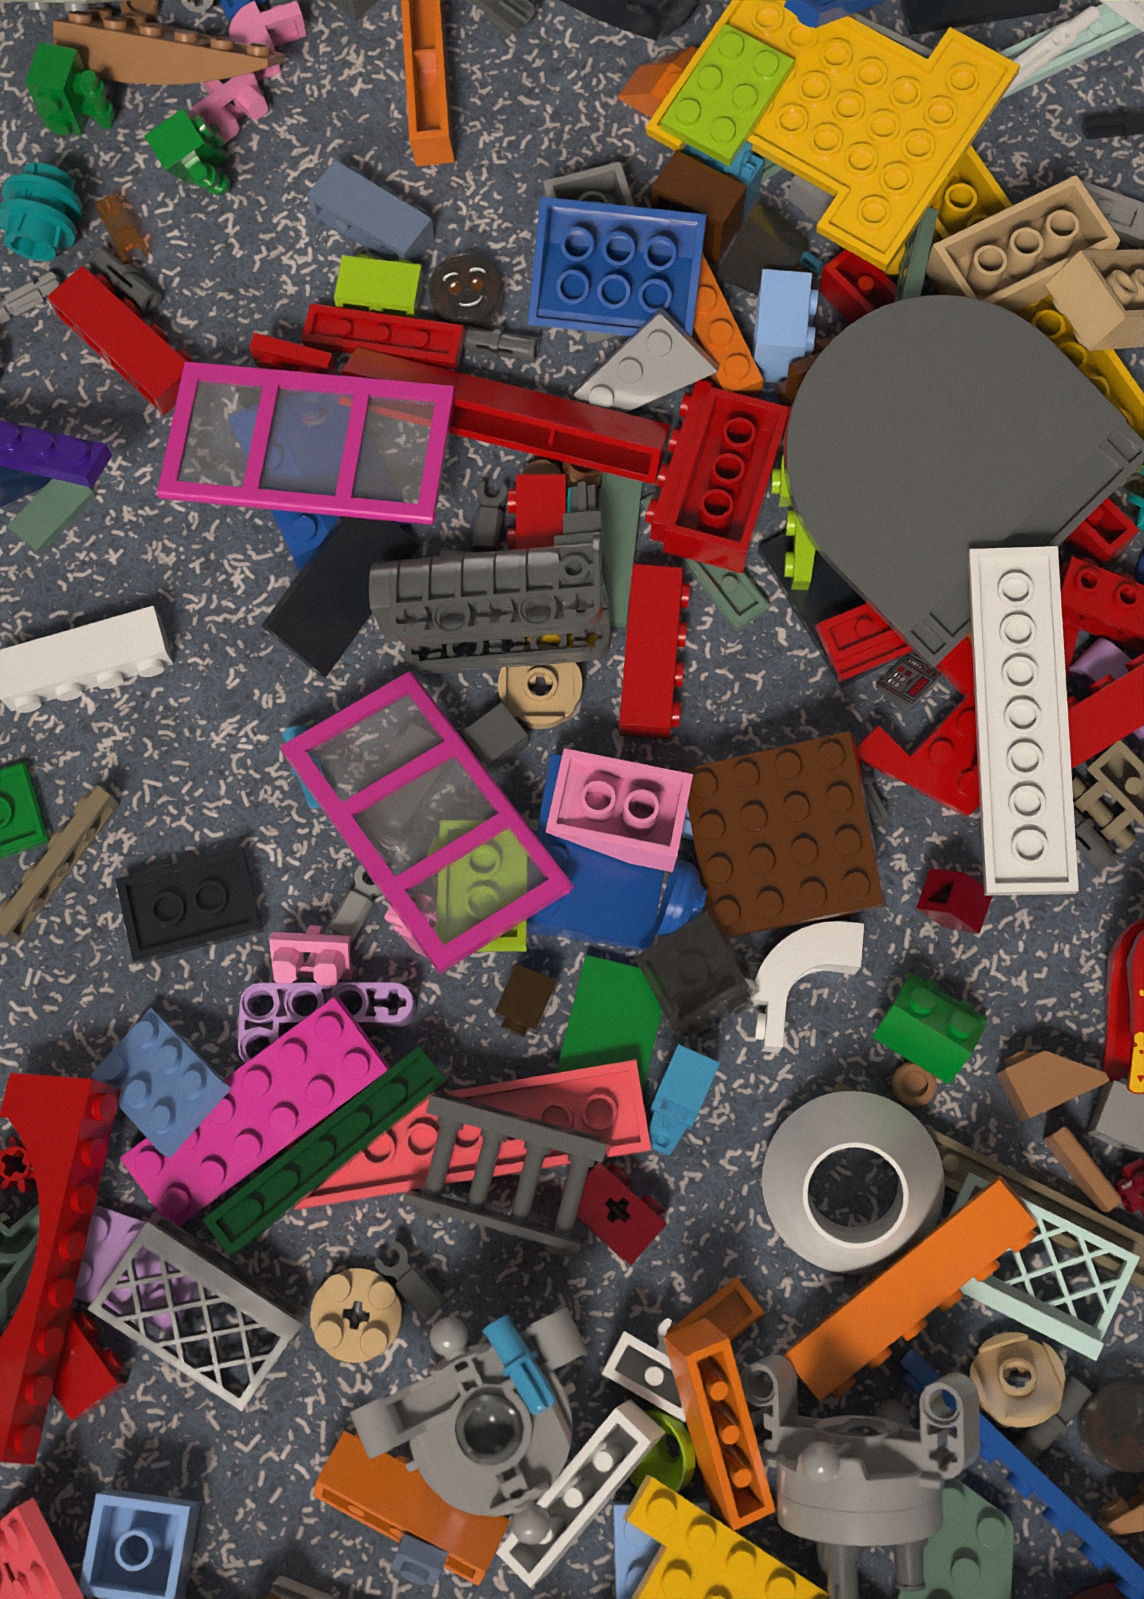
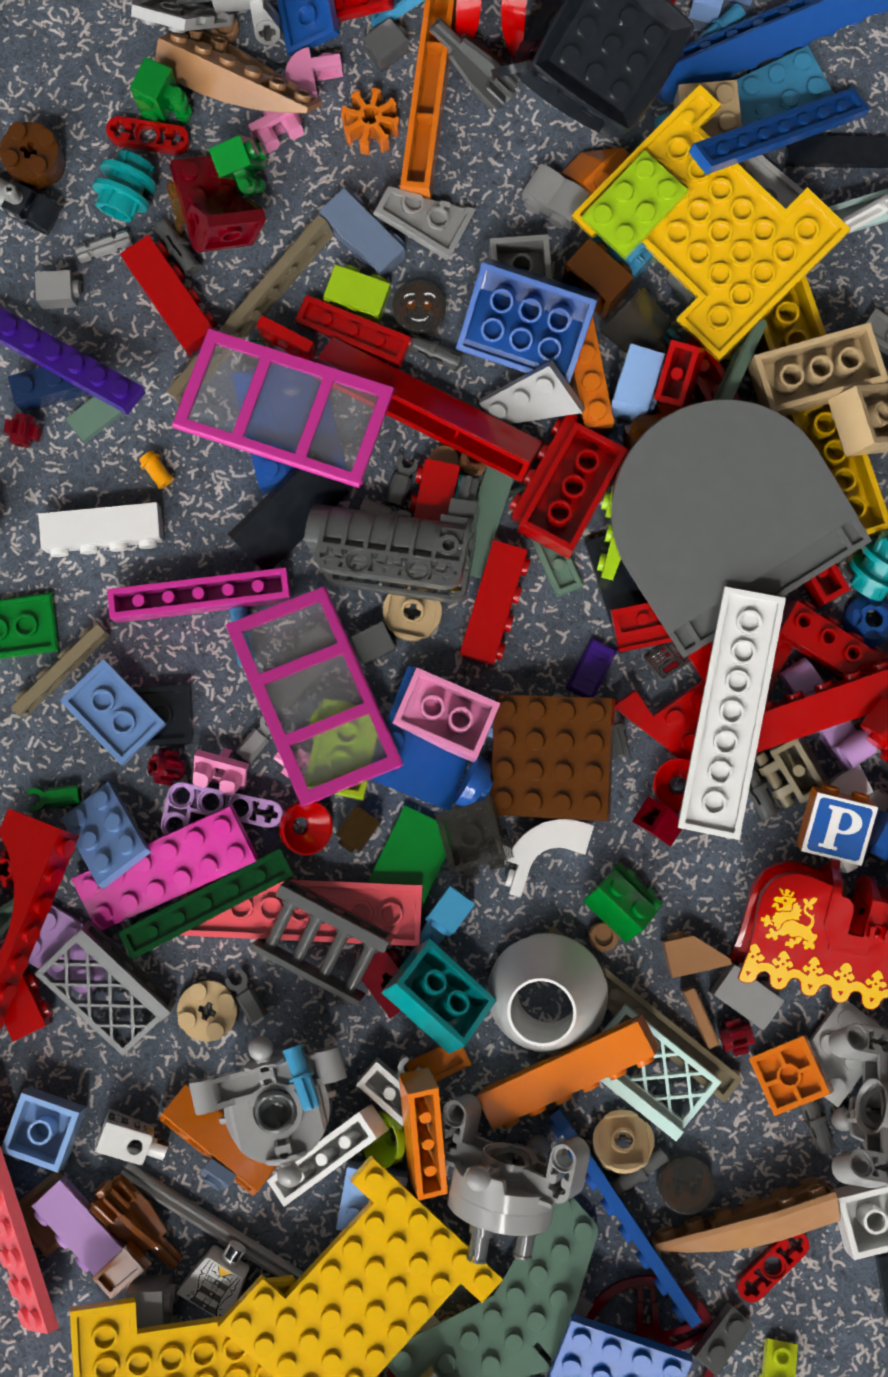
camera: 10 degrees right, 10 degrees up
(51, 139) = (169, 130): none -> red beam
(78, 1045) = (57, 796): none -> green bar
(141, 564) = (156, 469): none -> light orange pin
(141, 903) = (113, 712): none -> medium blue plate
(163, 218) = (213, 208): none -> dark red bracket
(231, 968) = (166, 767): none -> dark red gear
(232, 720) = (199, 595): none -> dark pink brick
(255, 1526) = (118, 1133): none -> white torso
(260, 305) = (267, 292): none -> dark tan plate
(353, 77) = (384, 116): none -> orange gear
(454, 184) = (424, 220): none -> light grey wing
(466, 1007) = (317, 830): none -> red piece
(615, 123) = (553, 196): none -> light grey brick
(697, 1213) = (439, 996): none -> teal brick
(808, 709) = (591, 668): none -> dark purple tile
(837, 289) = (679, 373): none -> red brick
(955, 825) = (661, 780): none -> red piece

